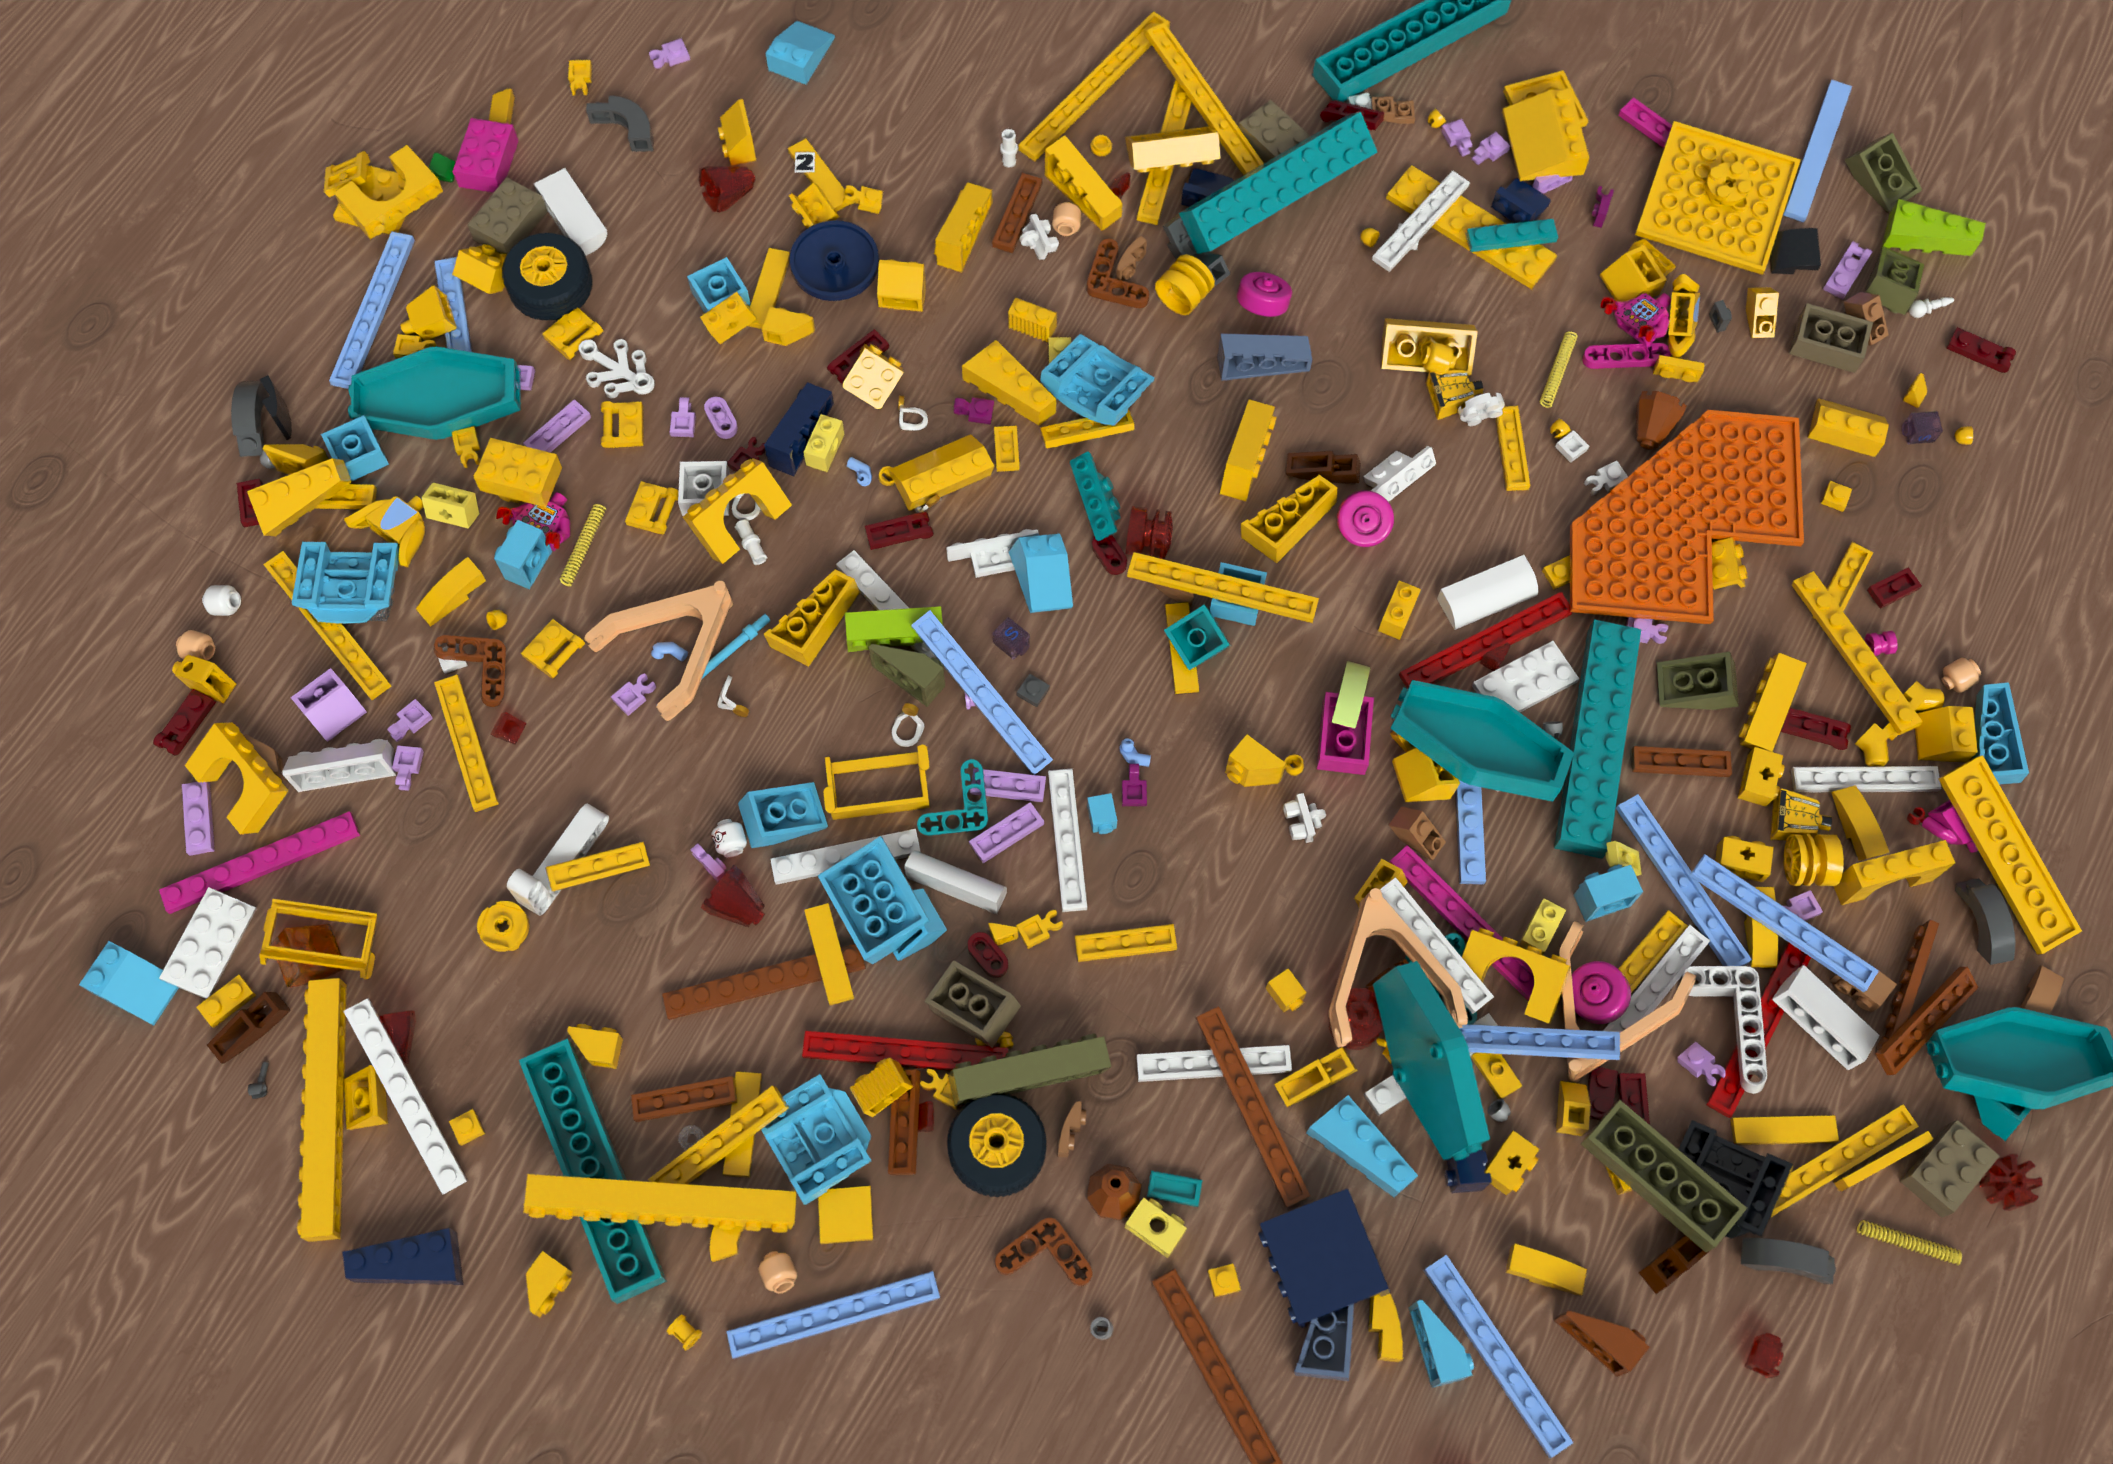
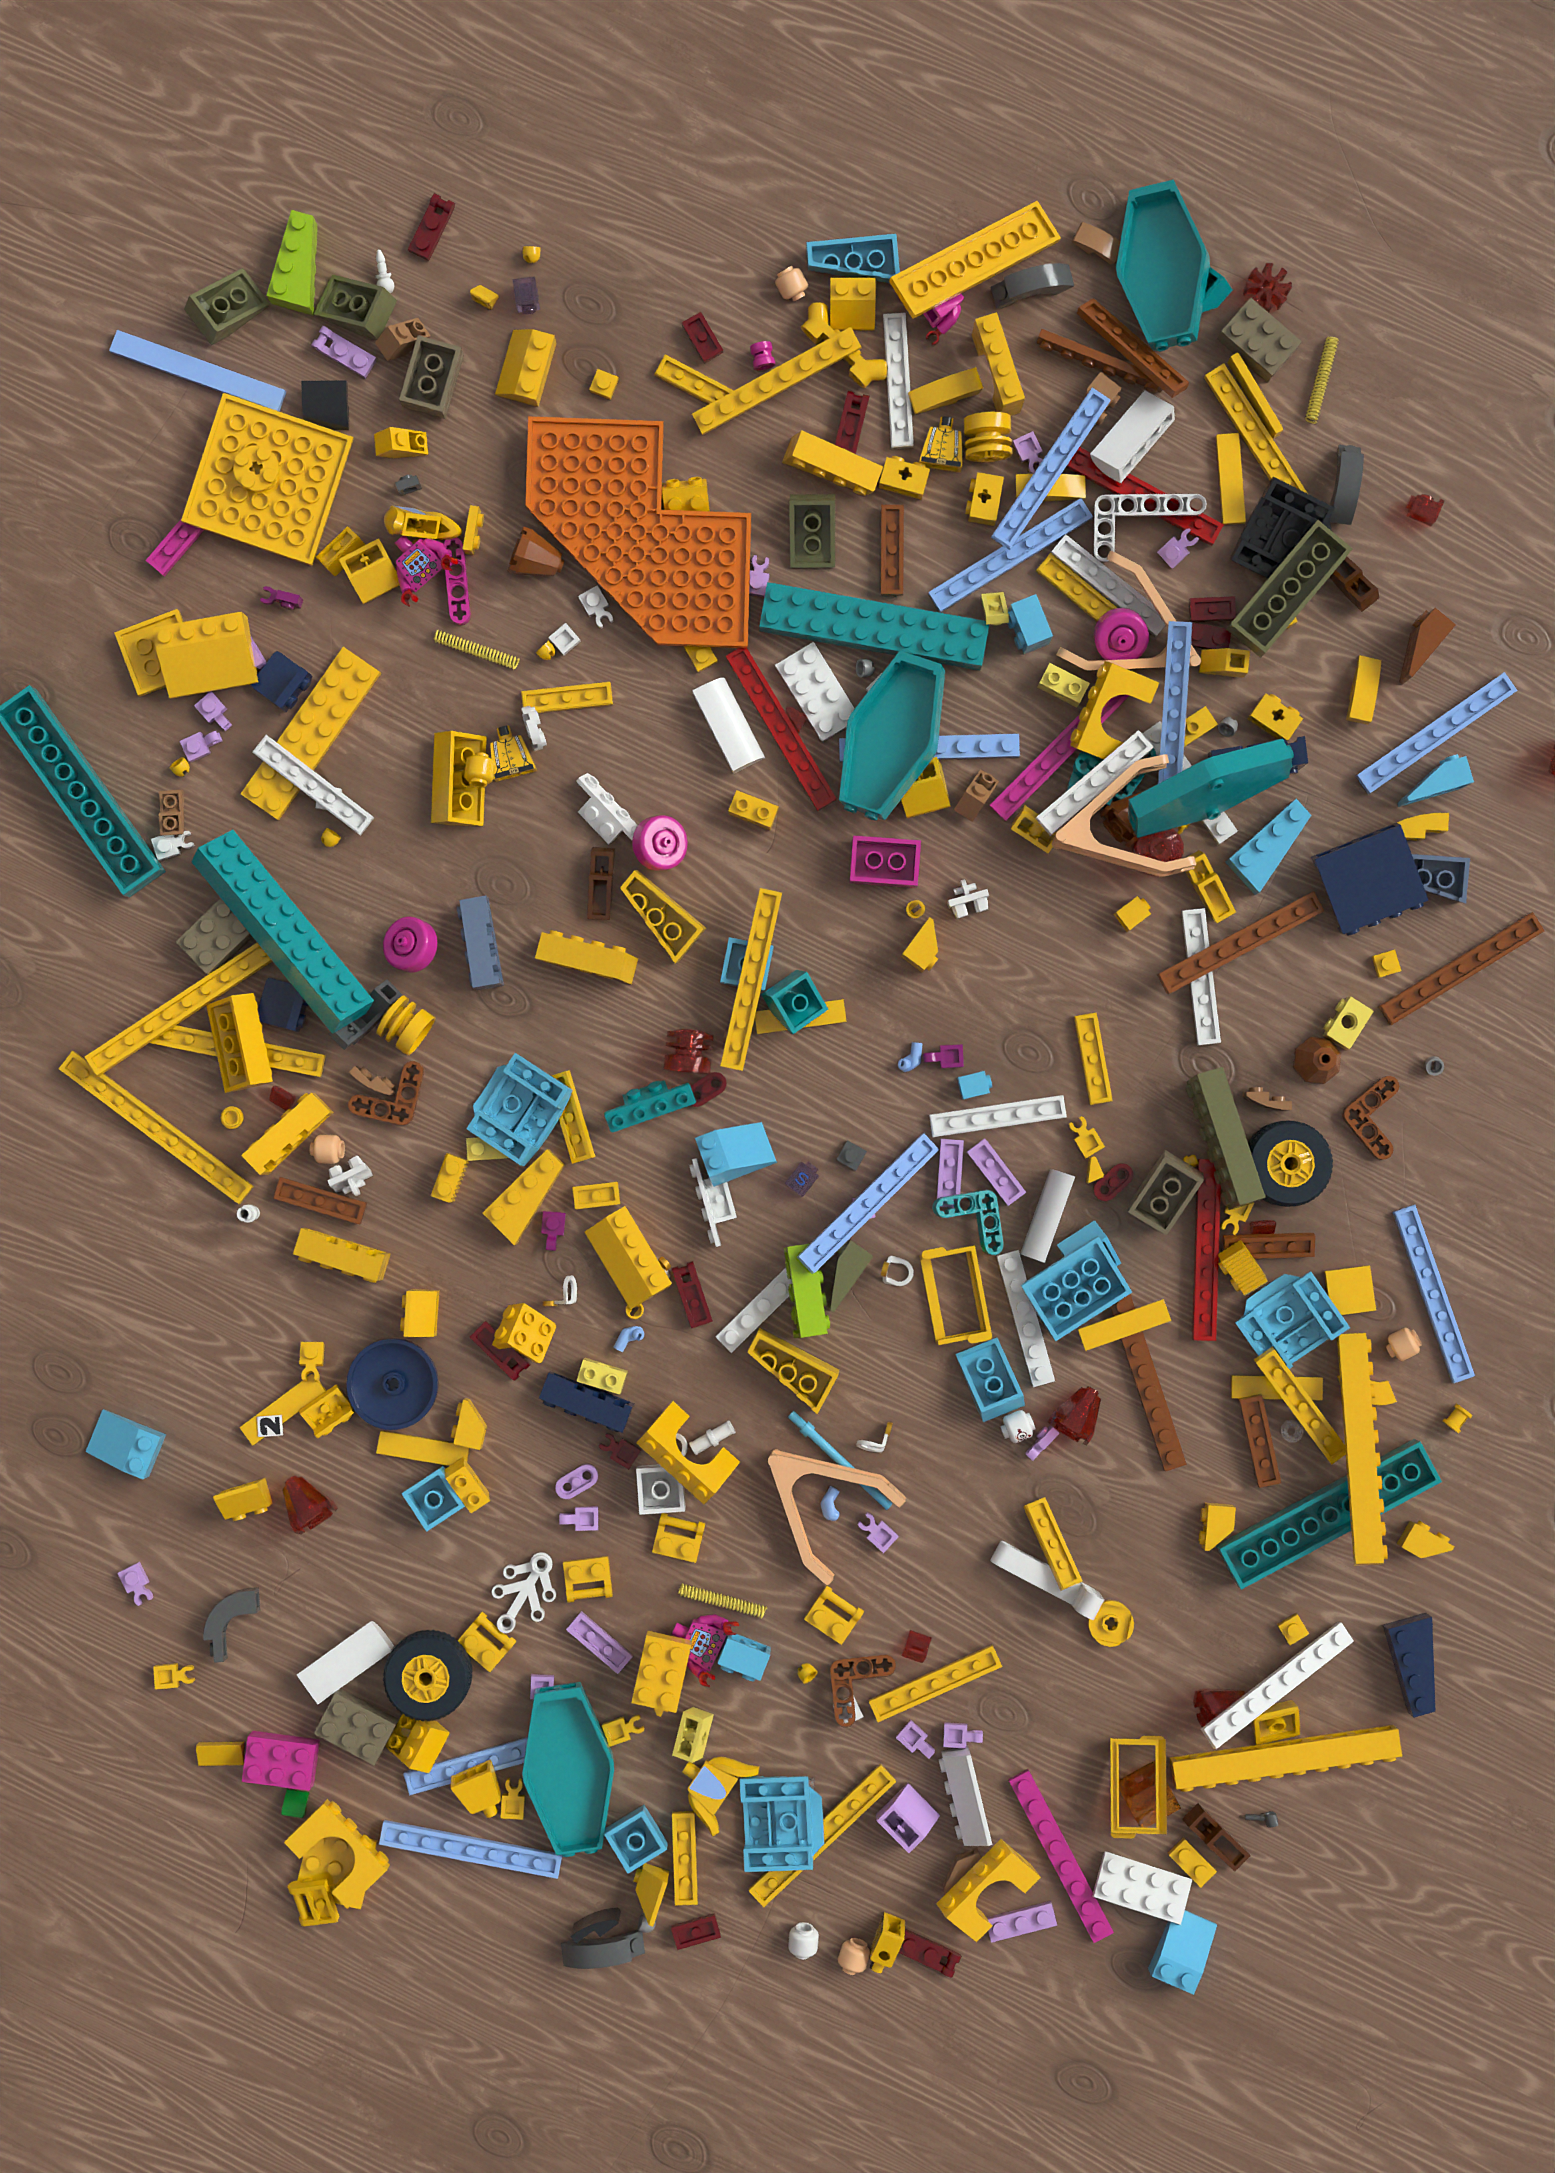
camera: 90 degrees left, 20 degrees up
(294, 495) = (696, 1889): yellow wedge -> none
(450, 591) = (782, 1721): yellow slope -> none
(1174, 1188) = (1311, 1008): teal tile -> none
(1336, 110) = (187, 845): dark red plate -> none
(1351, 694) = (847, 855): yellowish green slope -> none
(1511, 235) = (326, 692): teal plate -> none

